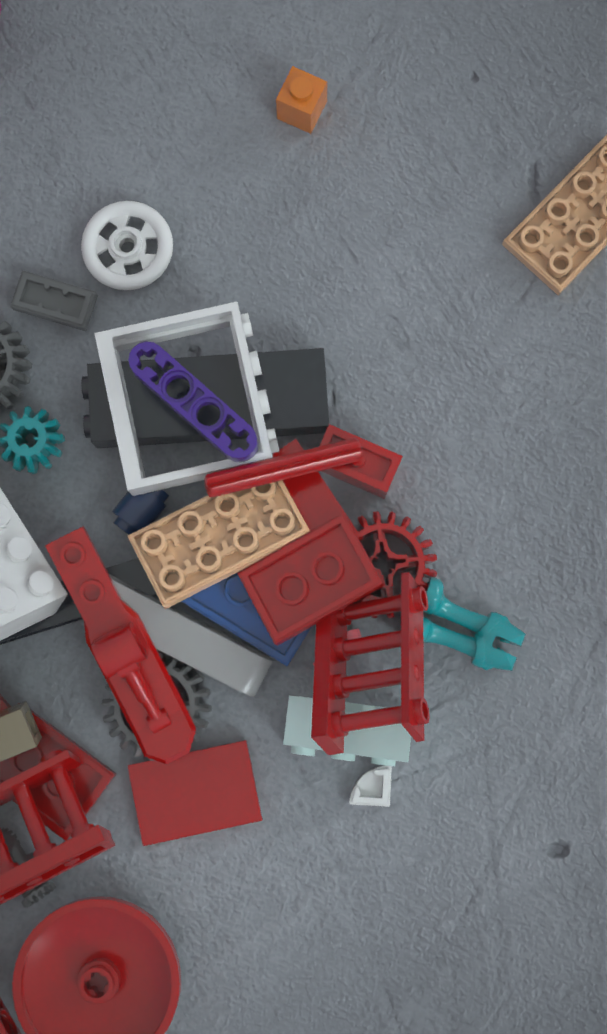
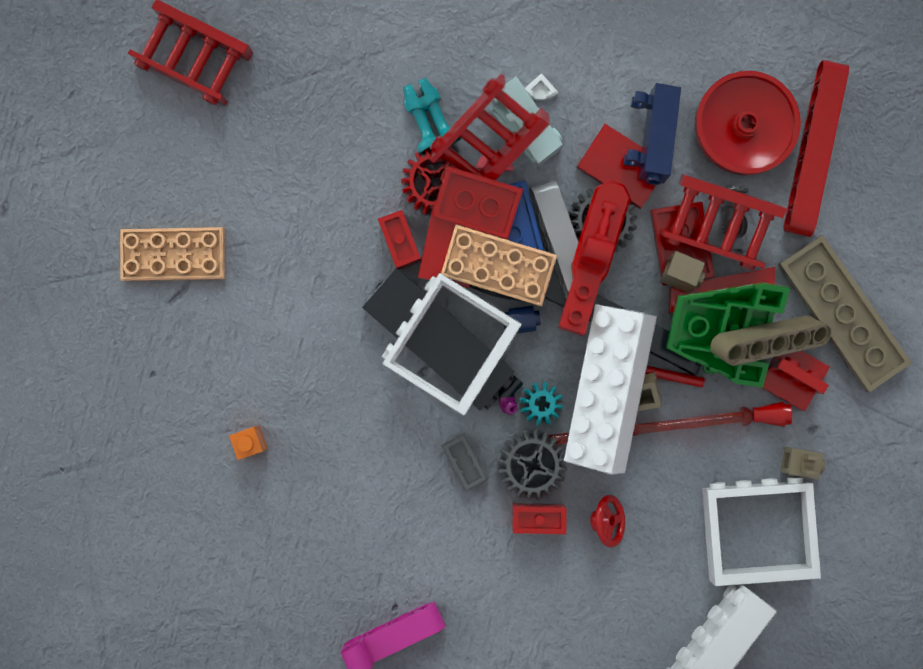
camera: 140 degrees left, 5 degrees up
(72, 410) = (507, 397): none -> arm
(119, 215) = (392, 474): white plate -> none
(187, 868) = (659, 133): none -> dark blue brick
(196, 398) = (450, 334): dark purple beam -> none
(282, 467) = (439, 264): red axle -> none

